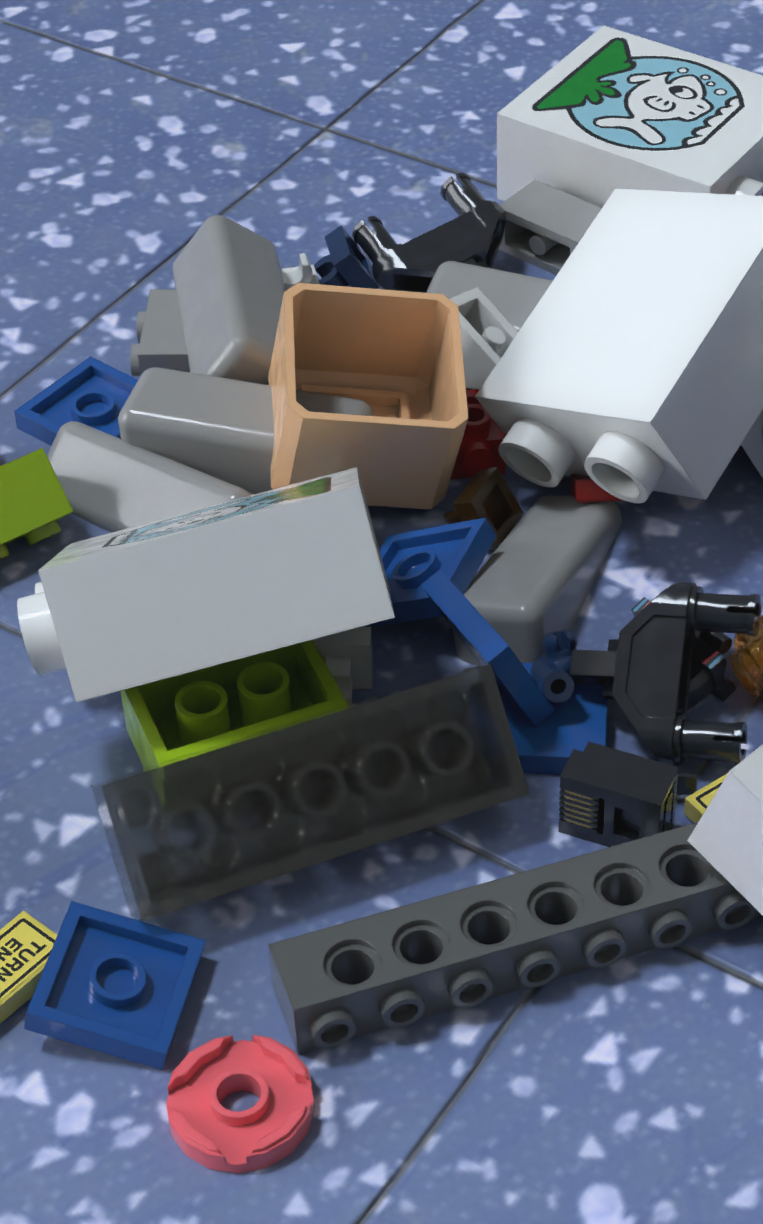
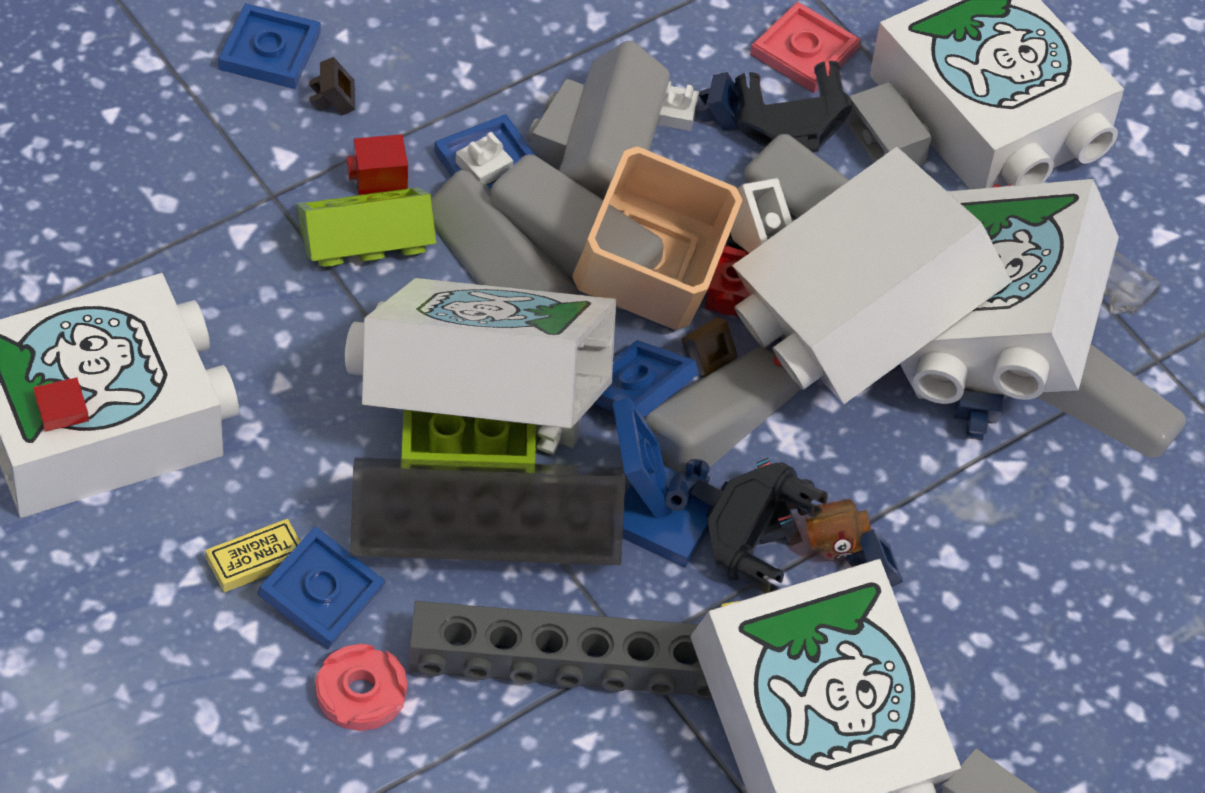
camera: 15 degrees right, 10 degrees up
(89, 401) = (484, 159): none -> white tile
(405, 191) = (801, 42): none -> coral tile
(618, 795) = (678, 588): black piece -> none

